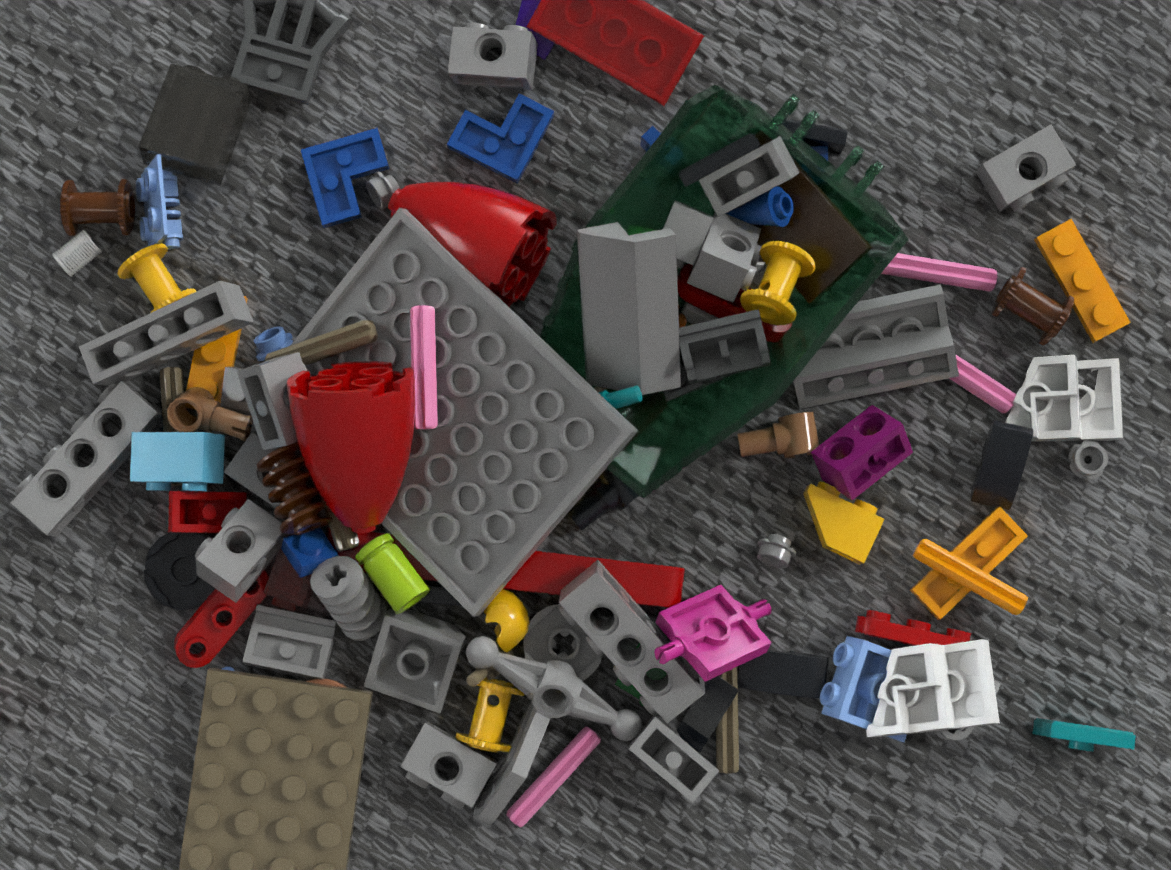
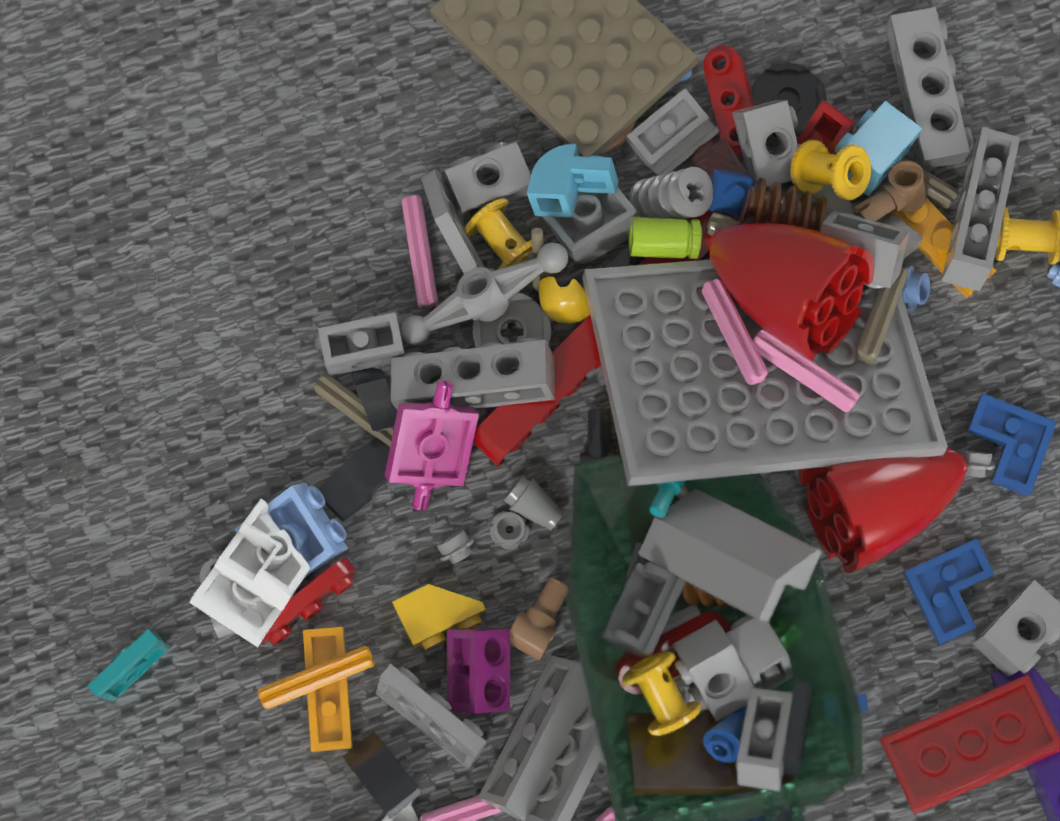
camera: 130 degrees right, 5 degrees down
(234, 493) = (815, 167): none -> yellow hose
(399, 704) = (562, 175): none -> medium azure brick
(433, 450) = (734, 332): none -> bright pink axle
(691, 516) = (533, 503): none -> light grey cone
(734, 511) = (499, 534): none -> light grey plate
(926, 459) = (431, 715): none -> light grey plate

